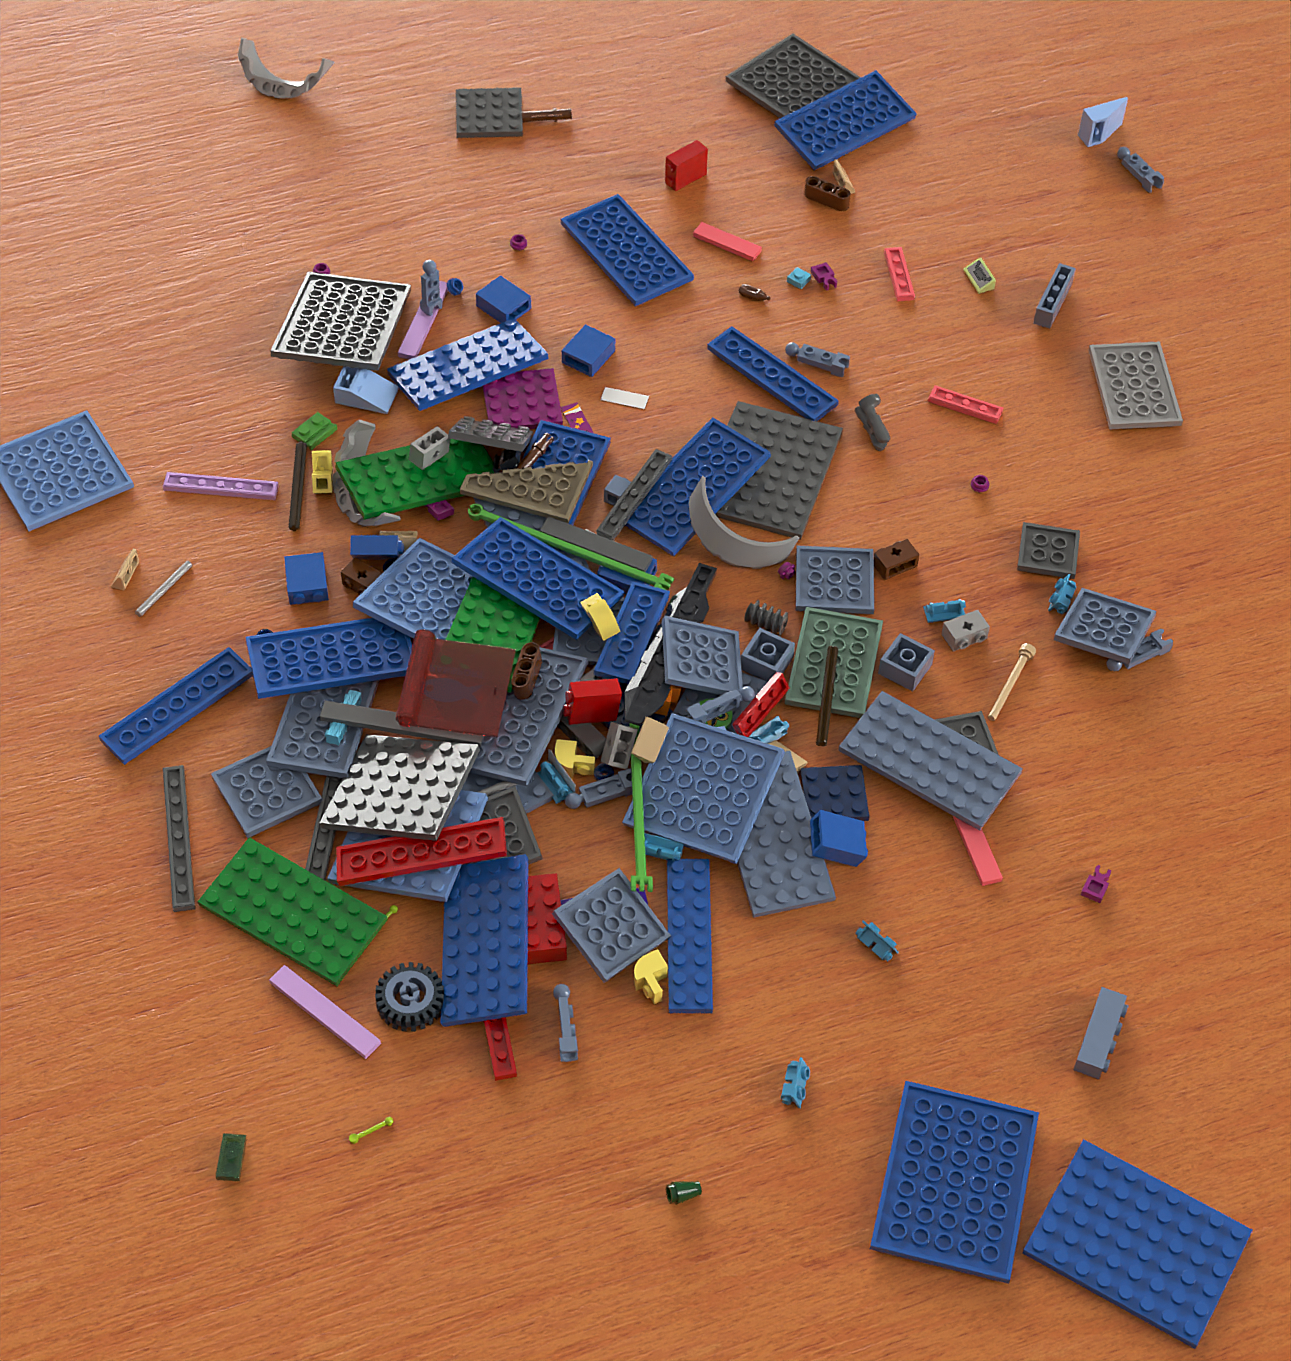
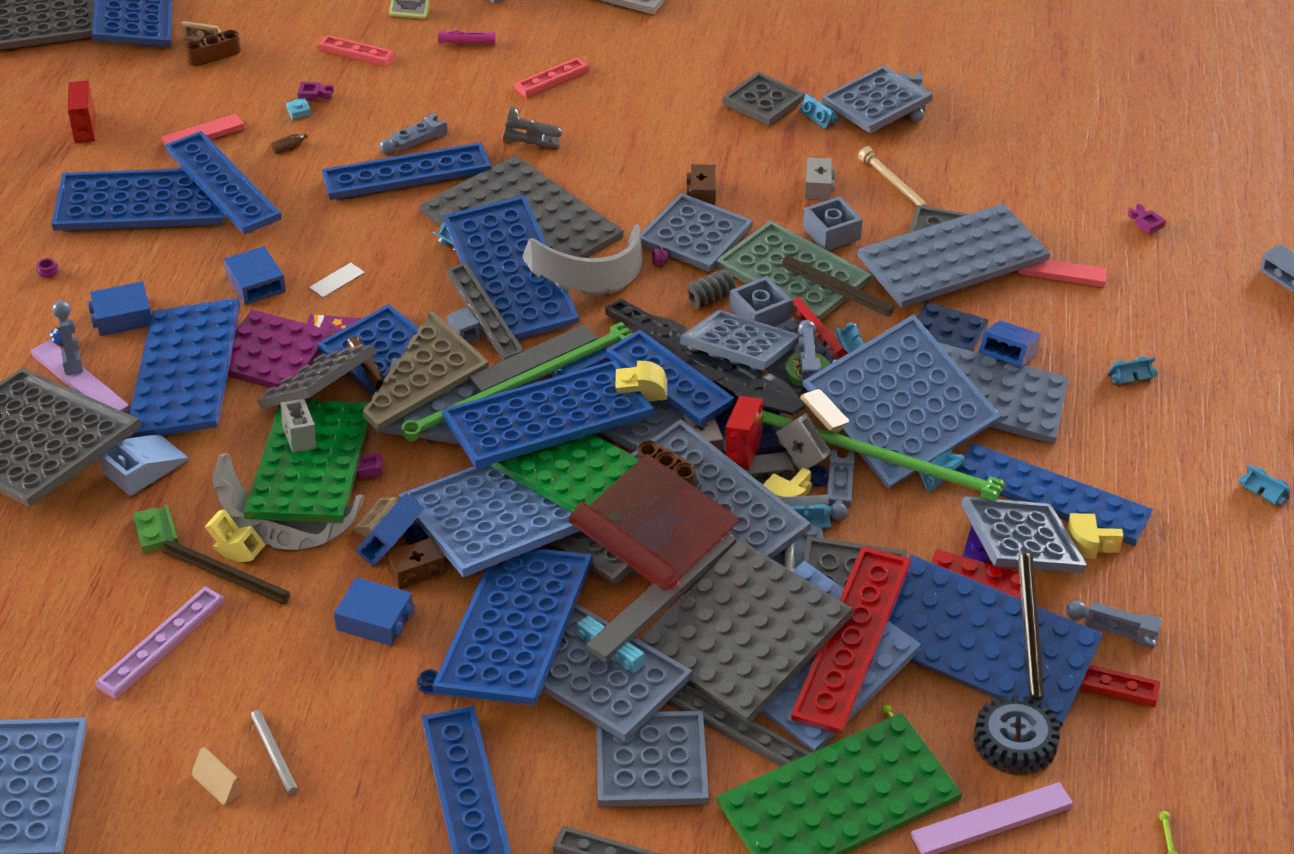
camera: 60 degrees left, 10 degrees down
(498, 958) = (1031, 627): none -> dark brown axle
(508, 459) = (354, 385): black plate -> none
(667, 280) = (223, 182): none -> blue plate
(941, 612) = (784, 181): dark azure hinge -> none
(965, 323) = (466, 37): none -> dark pink pin
(980, 483) = (653, 104): magenta plate -> none

